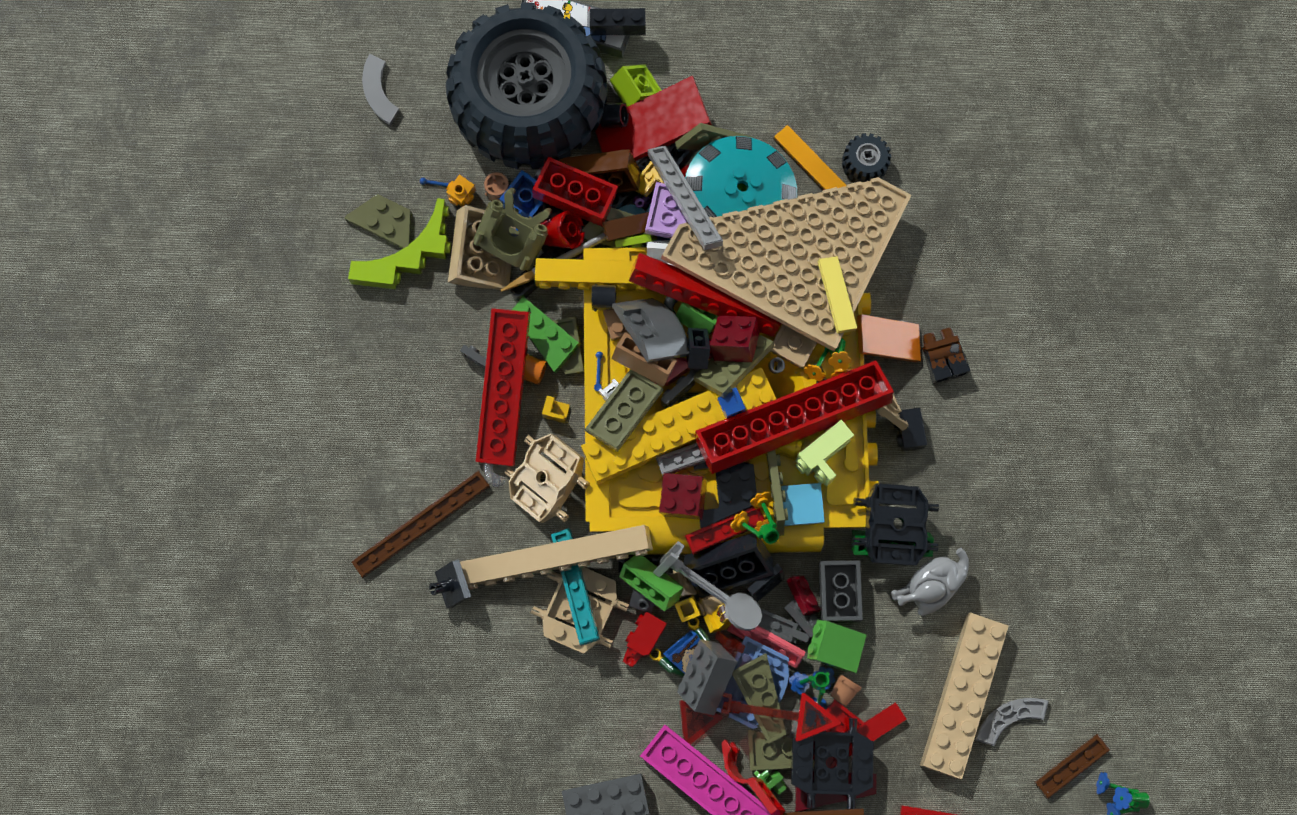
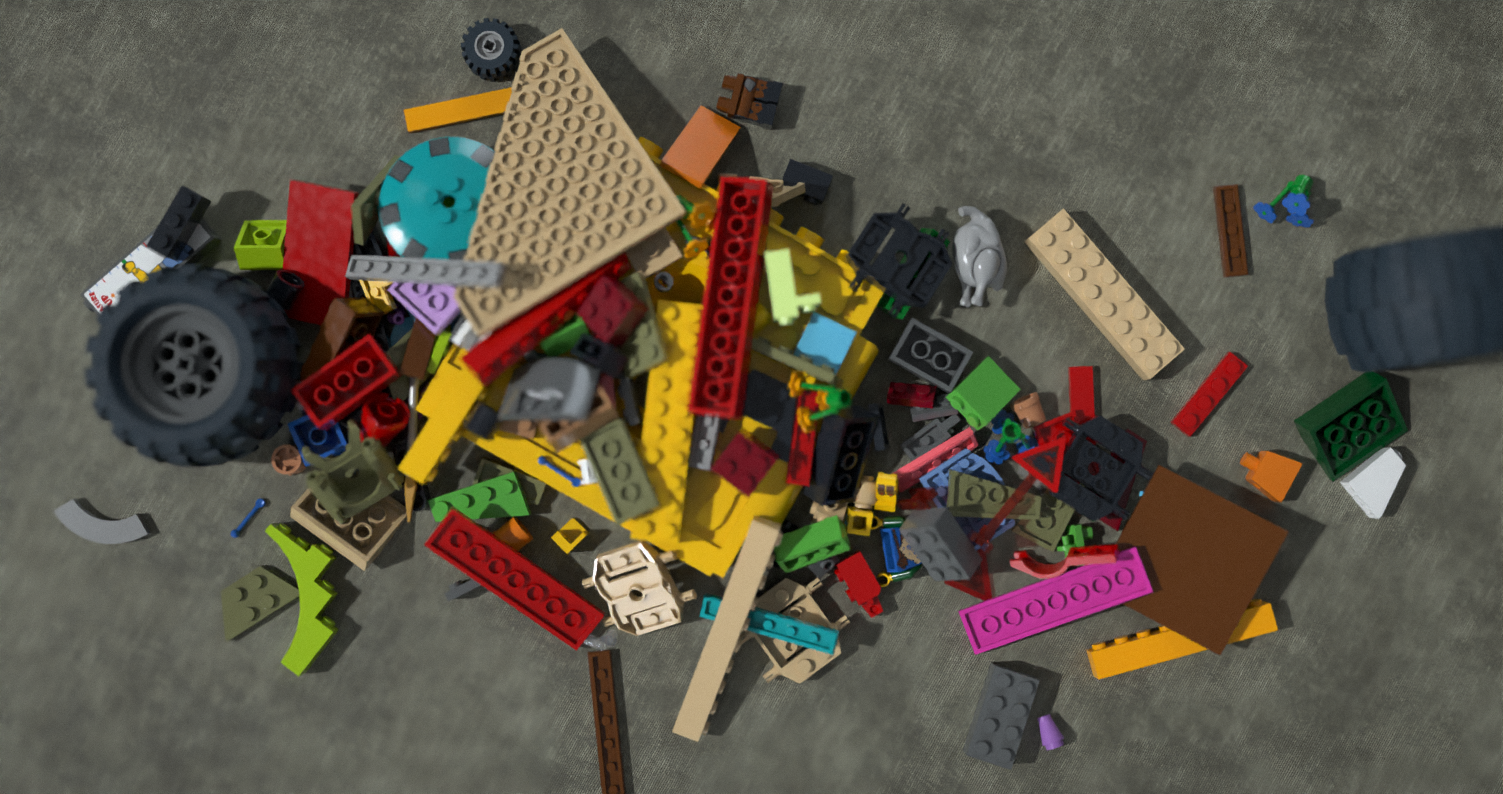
camera: 60 degrees left, 10 degrees up
(451, 584) = (692, 749): black tile -> none
(460, 191) = (264, 501): light orange brick -> none
(731, 404) = (680, 356): blue panel -> none
(739, 608) = (892, 469): light grey piece -> none
(837, 294) = (627, 174): light yellow tile -> none
(1007, 714) = (1144, 262): light grey tile -> none

